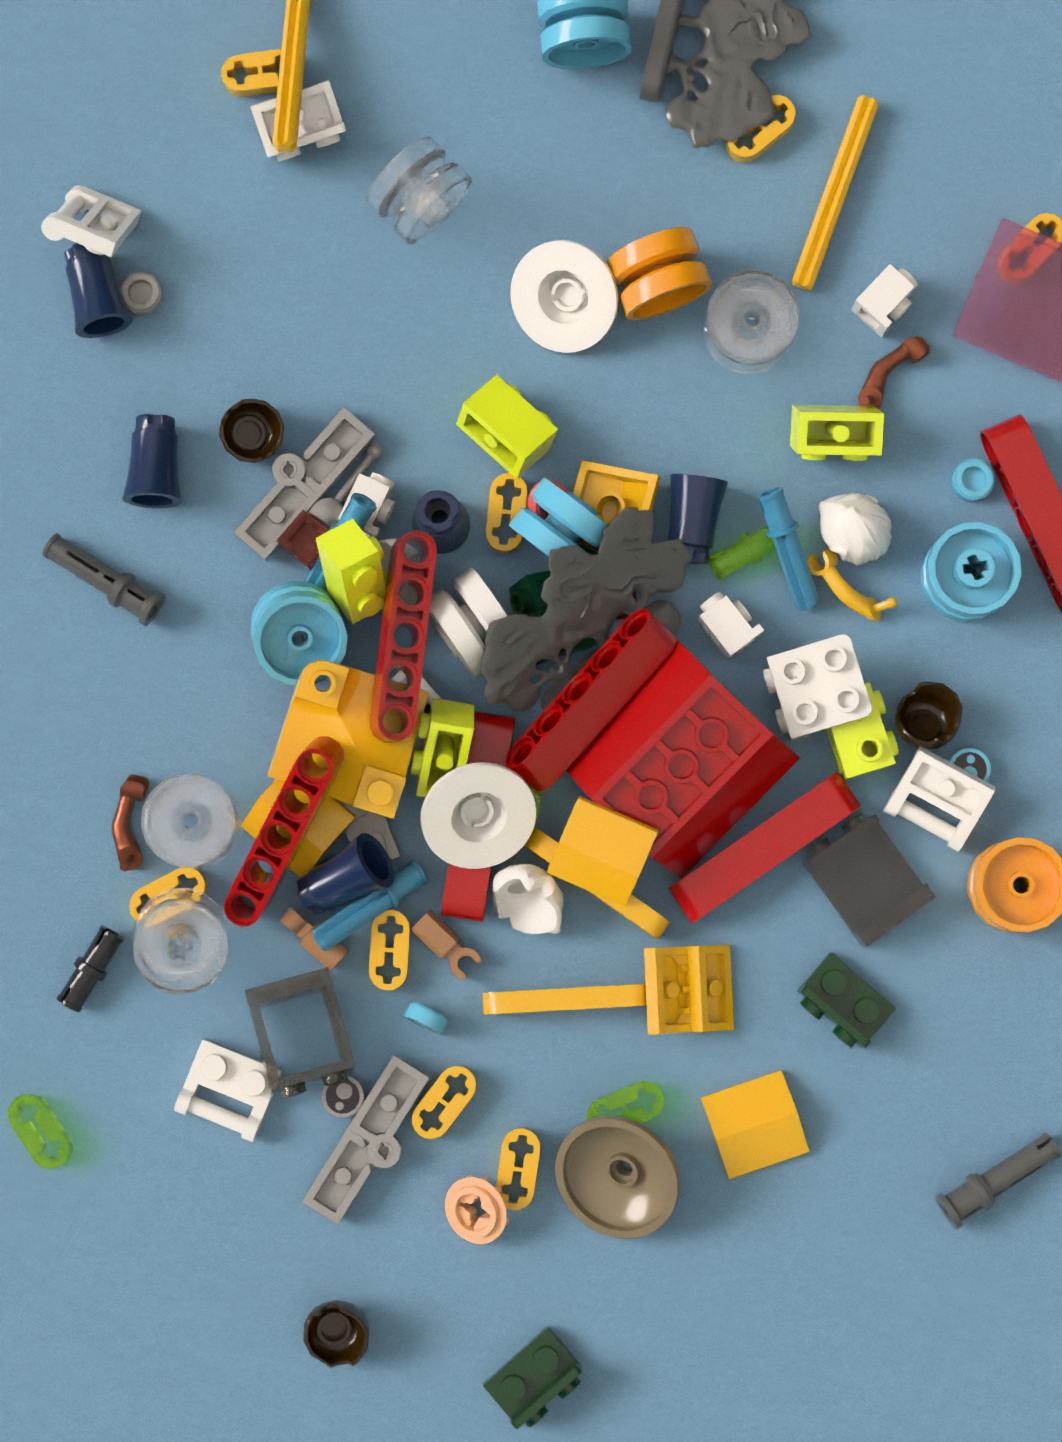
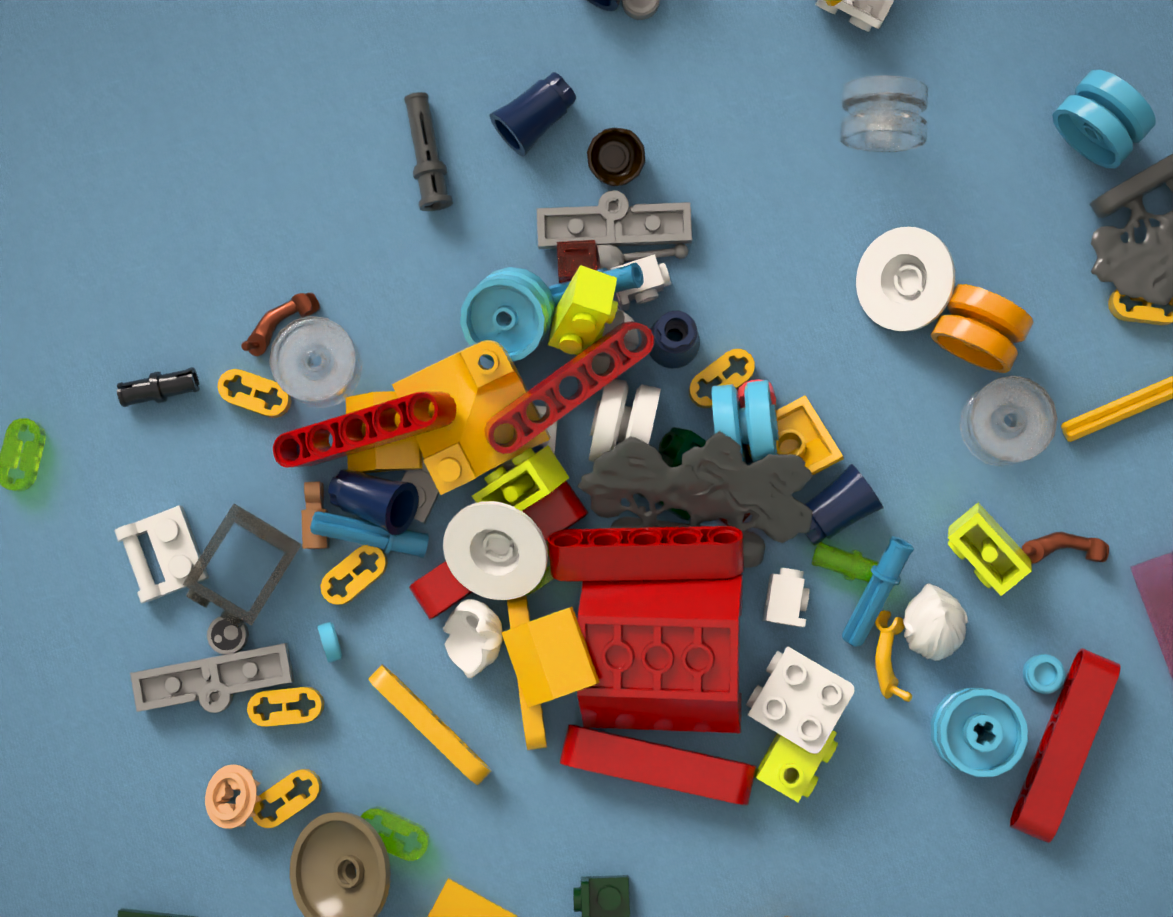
camera: 45 degrees right, 0 degrees up
(175, 965) = (228, 429): clear wheel -> none
(336, 1333) = (63, 779): dark brown hair -> none
(443, 941) = (392, 606): medium nougat bar -> none
(506, 426) = (780, 323): neon yellow brick -> none
(688, 989) = (513, 802): yellow slope -> none
(866, 879) = (701, 856): clear smoke panel -> none
(885, 299) = (1111, 498): white brick -> none
(929, 715) = (852, 794): dark brown hair -> none
(945, 788) = (813, 851): white plate -> none
(973, 762) = (842, 855): tile -> none

